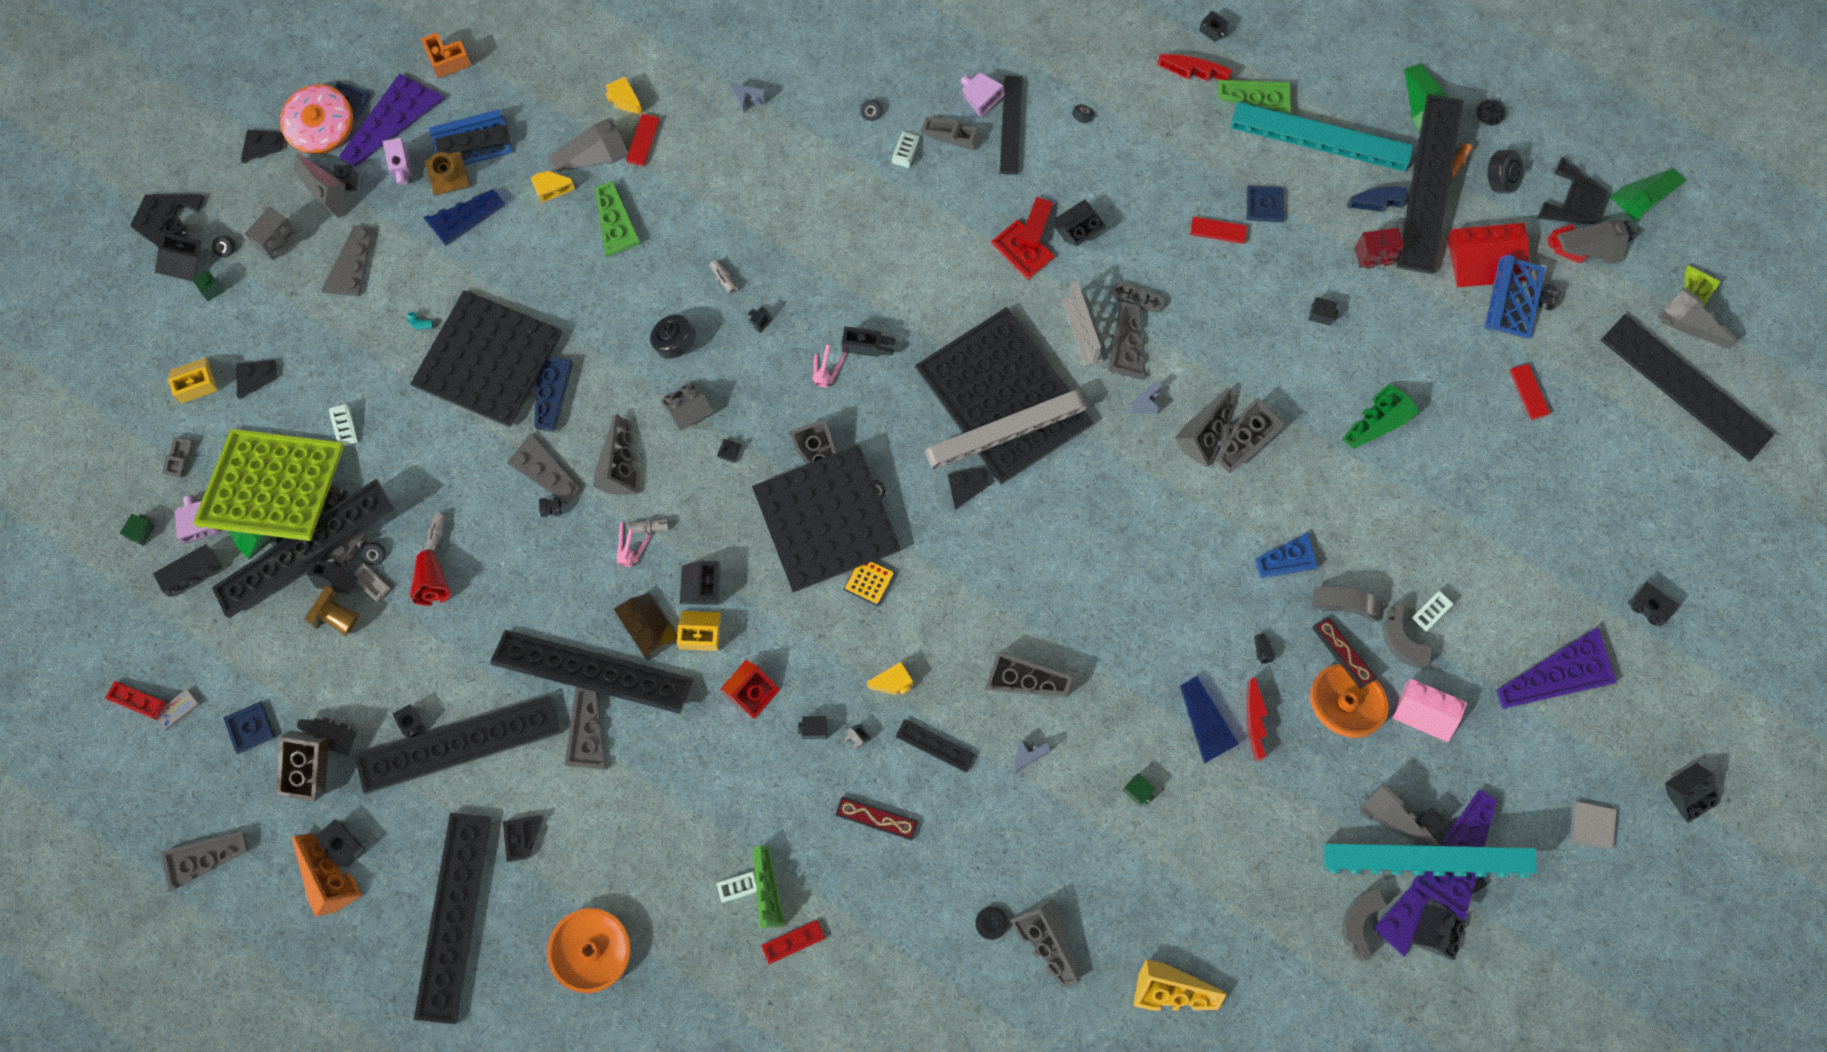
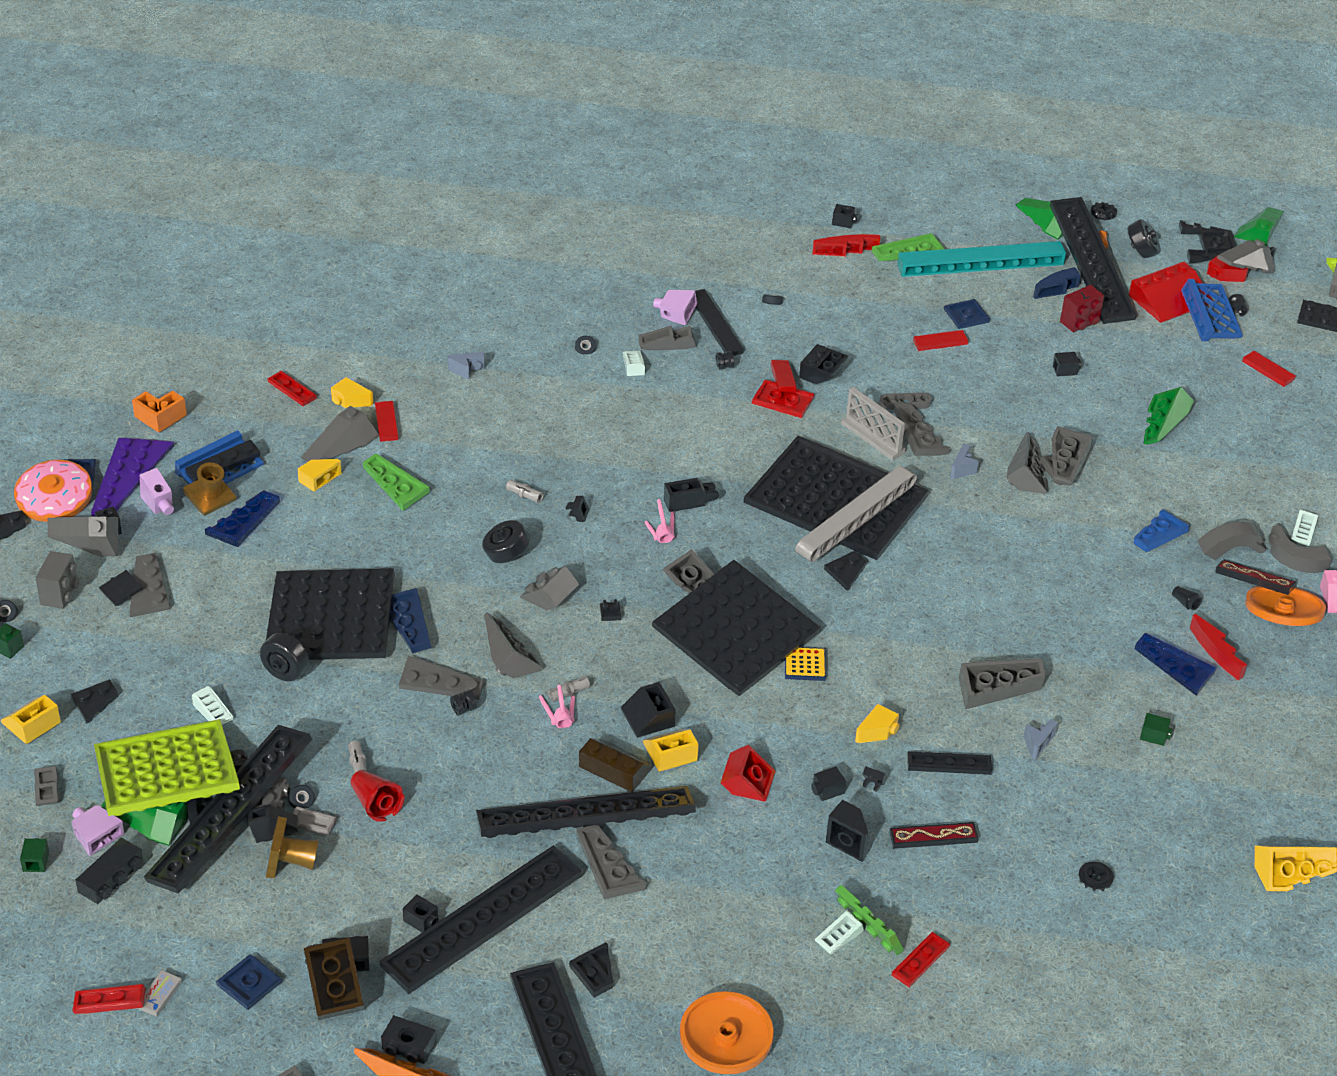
camera: 25 degrees left, 30 degrees down
(326, 257) = (120, 588): none -> black piece
(414, 321) = (244, 610): teal arm -> none
(418, 400) = (284, 657): none -> black wheel
(578, 66) = (292, 388): none -> red tile
(798, 788) = (847, 830): none -> black slope
(991, 180) = (724, 360): none -> black wheel
(1046, 933) = (1152, 865): dark grey wedge -> none

